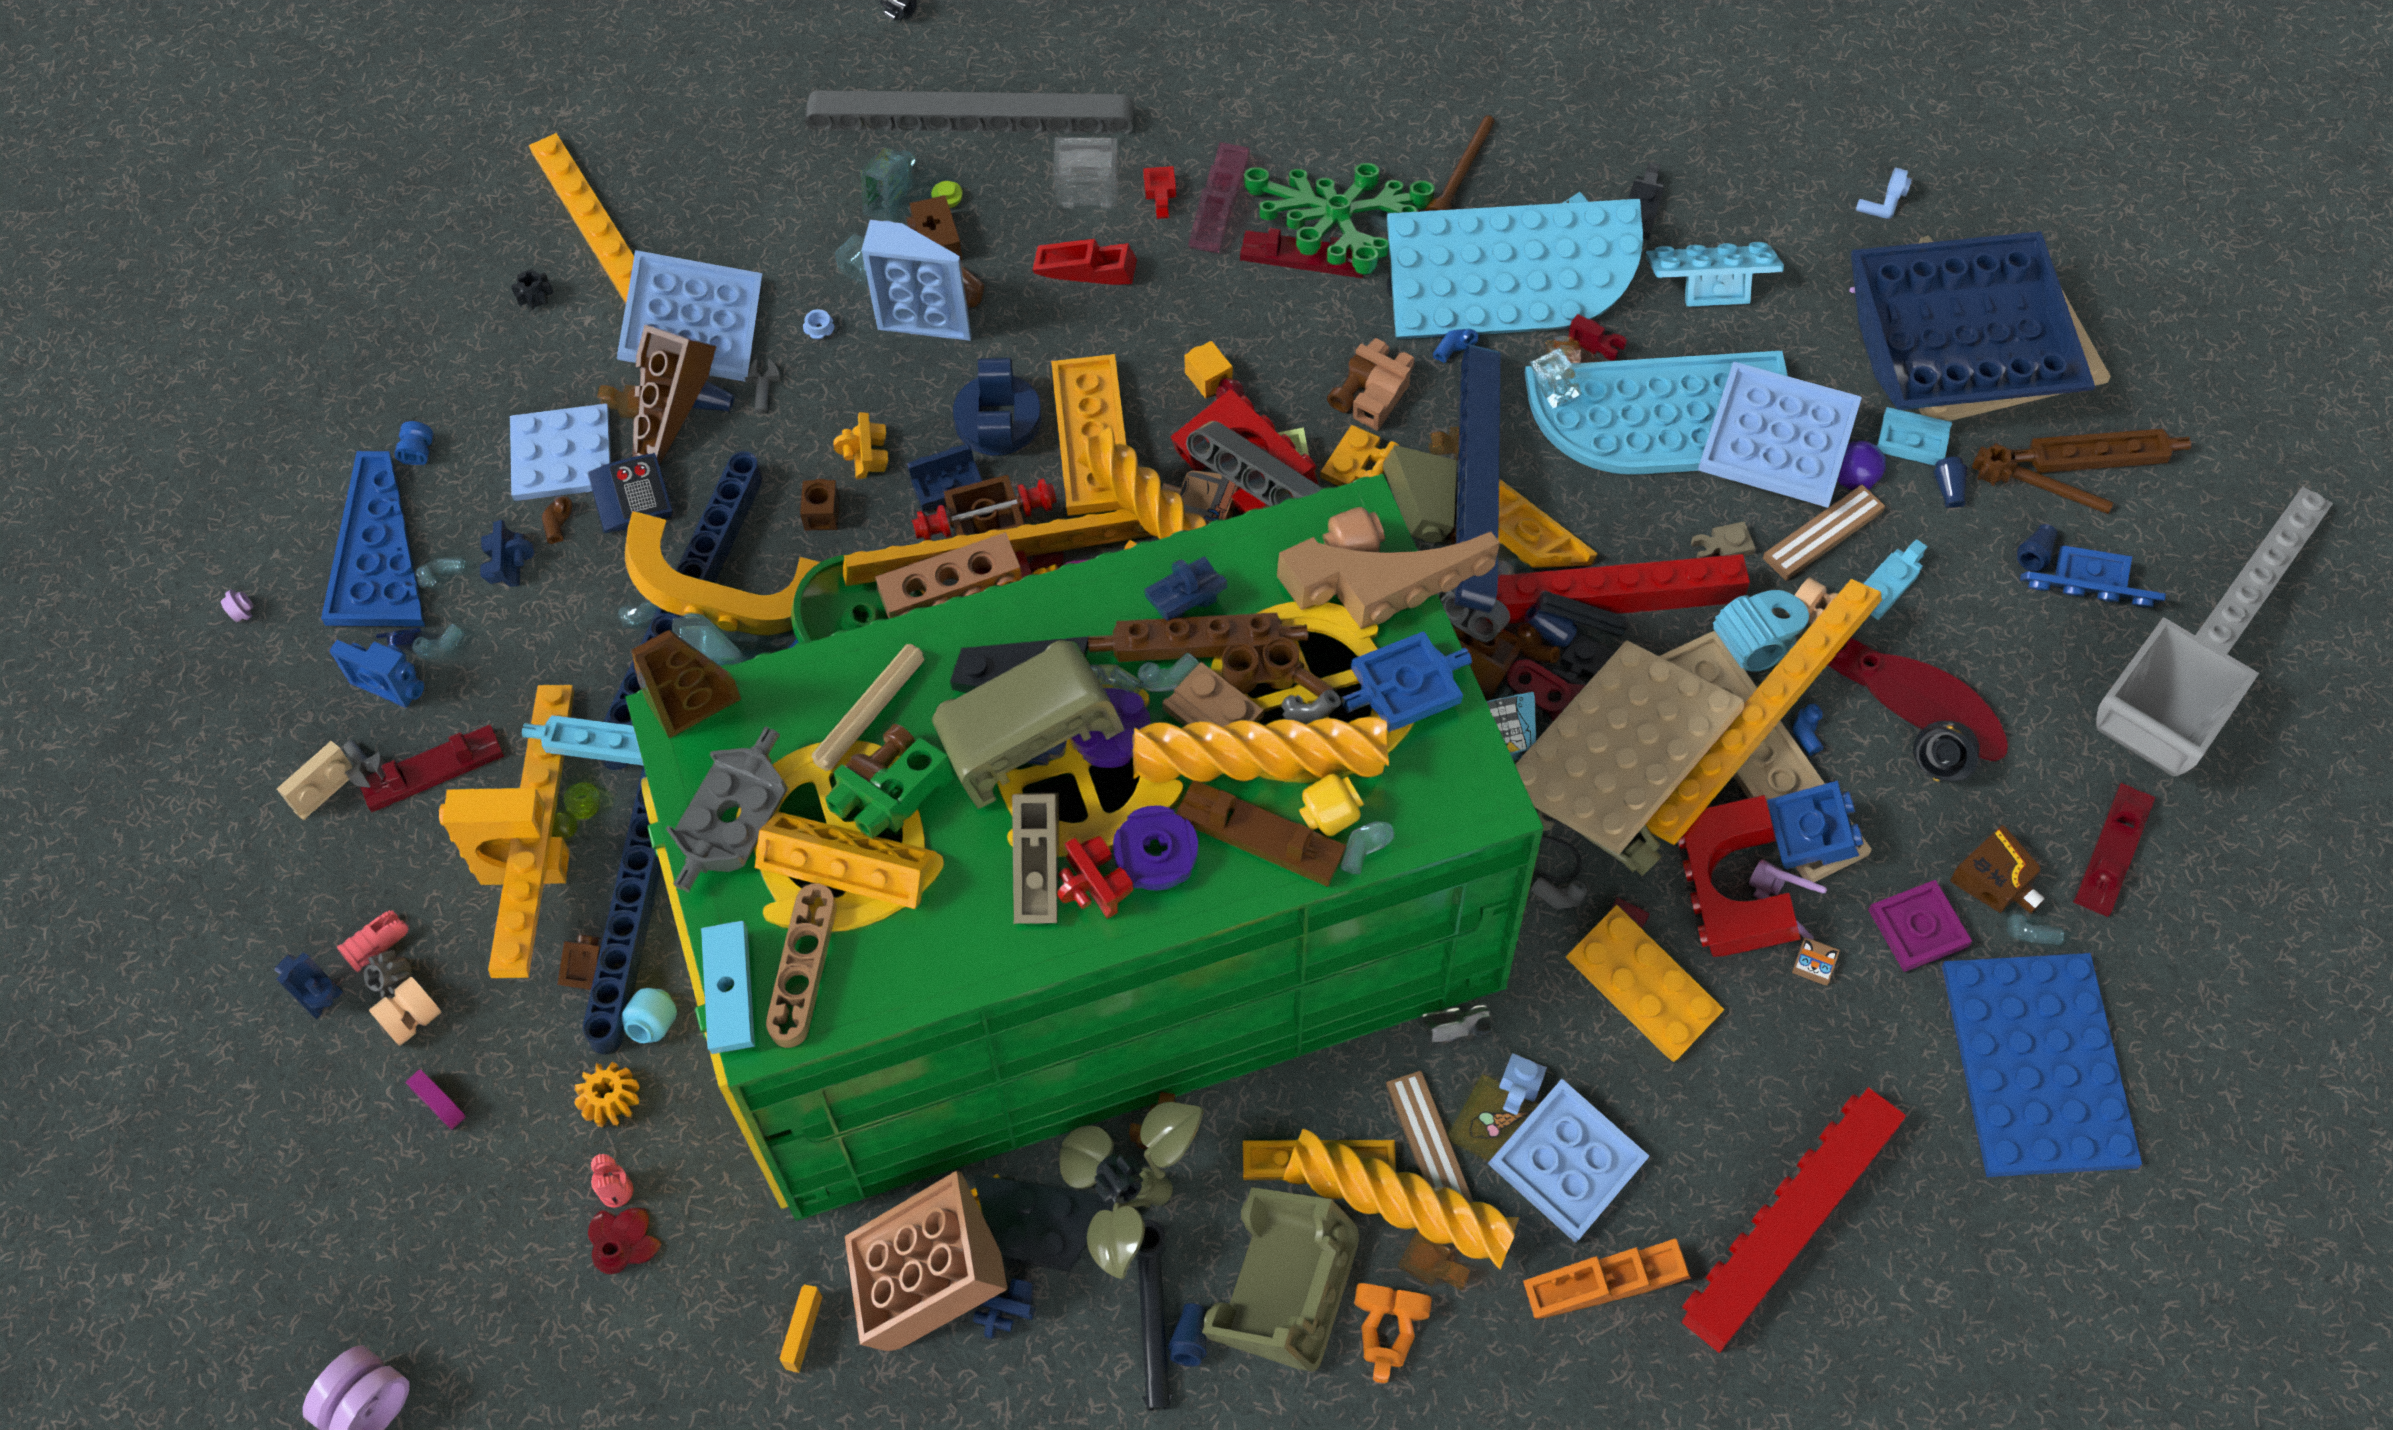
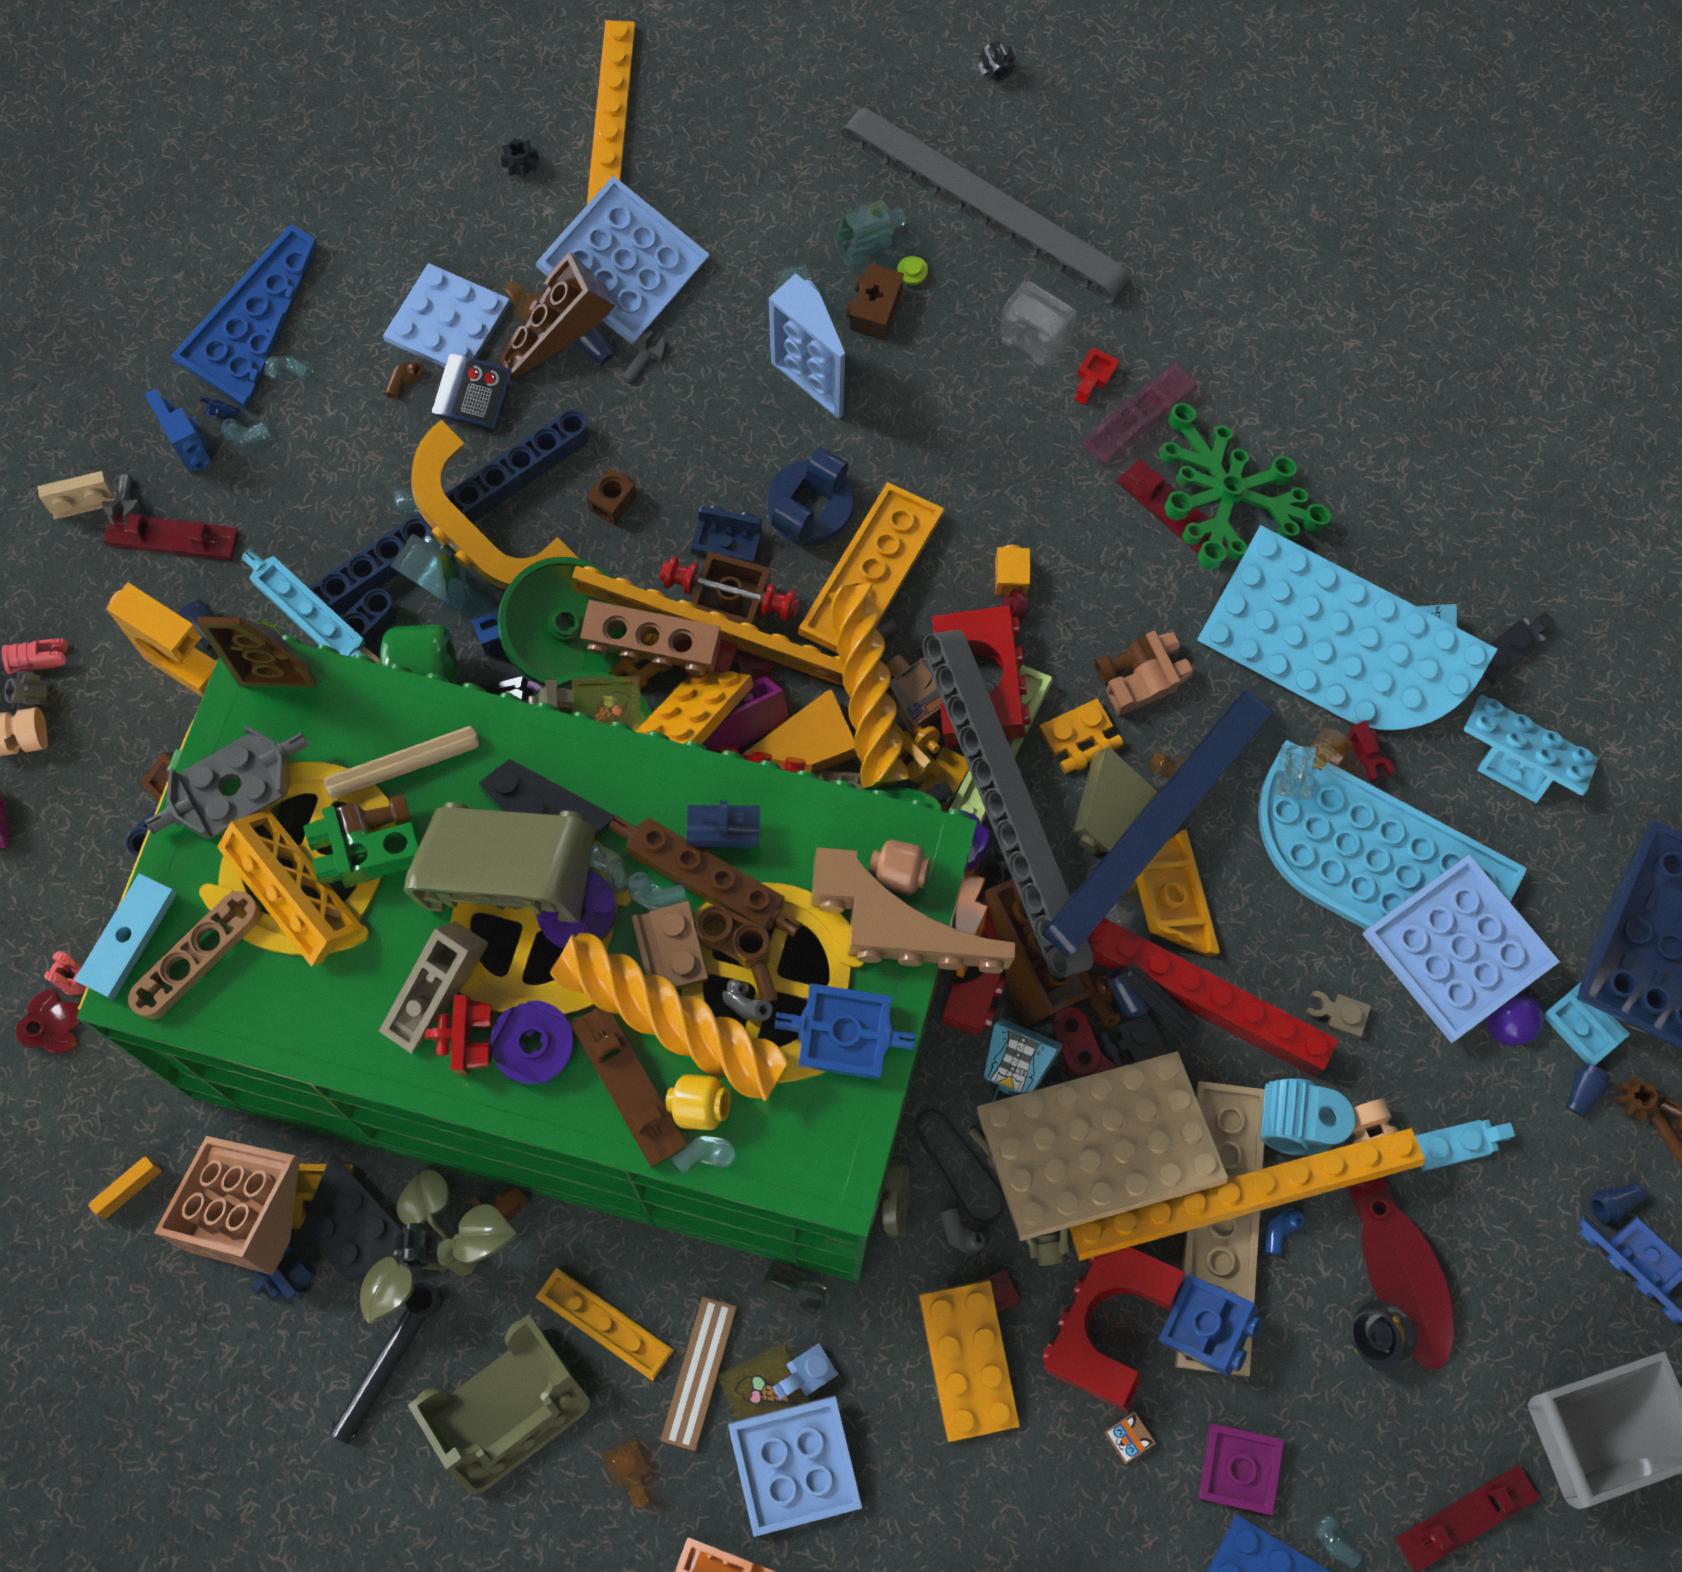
camera: 30 degrees right, 10 degrees up
(237, 605) = (119, 304): lavender plate -> none
(414, 441) = (338, 243): blue wheel -> none
(507, 553) = (343, 387): dark blue hips -> none
(529, 856) = (168, 676): light orange plate -> none
(613, 1103) = (101, 896): light orange gear -> none
(815, 318) = (724, 322): light blue plate -> none
(859, 443) = (678, 478): light orange hips -> none
(973, 288) = (873, 374): reddish brown arm -> none
(1086, 262) = (982, 407): red slope -> none
(1188, 1341) = (395, 1400): dark blue cone -> none
(1380, 1301) = (578, 1495): orange piece -> none
(1401, 1198) = (636, 1406): light orange piece -> none
(1444, 201) = (1323, 541): reddish brown piece -> none
(1455, 341) = (1243, 675): blue arm -> none
(1769, 879) = (1145, 1342): lavender plant -> none
(1823, 532) = (1436, 1060): medium nougat tile -> none
(2000, 873) = (1345, 1473): reddish brown torso -> none

